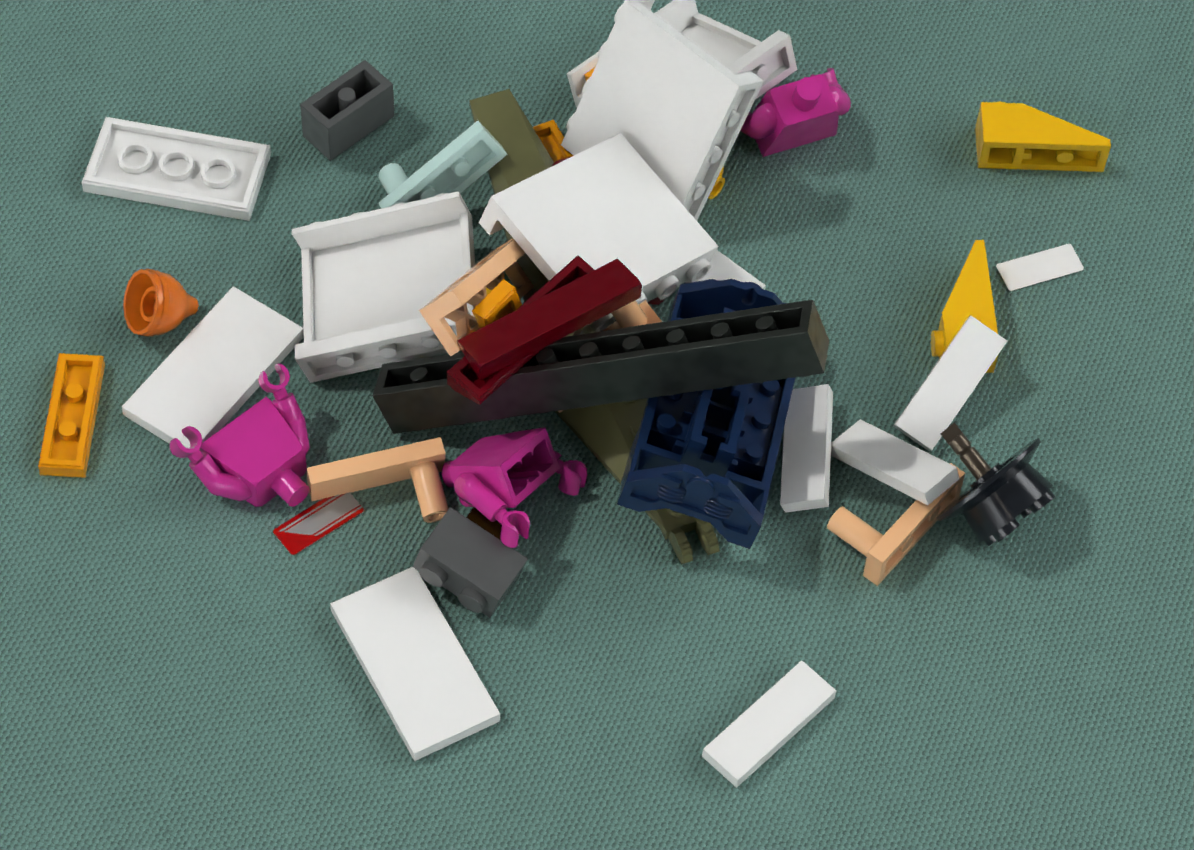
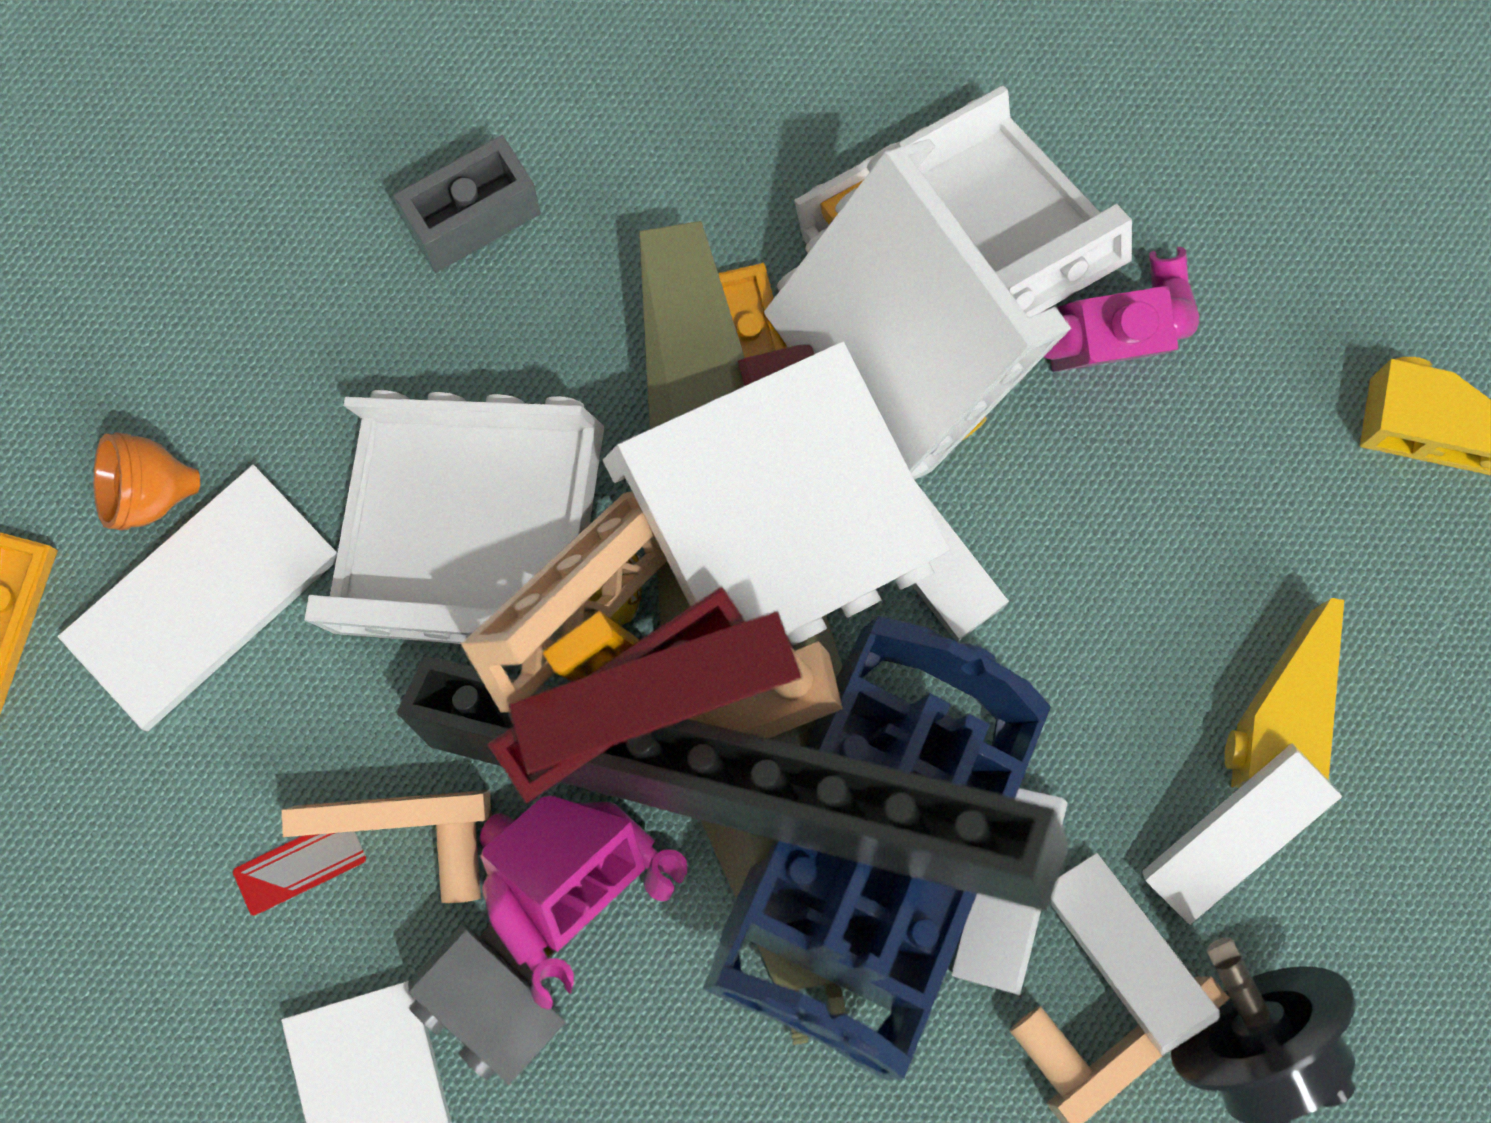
camera: 10 degrees right, 20 degrees up
(177, 168) = (218, 247): white tile -> none
(256, 452) = (223, 755): dark pink torso -> none
(446, 172) = (574, 352): light aqua piece -> none
(1039, 267) = (1413, 633): white sticker -> none

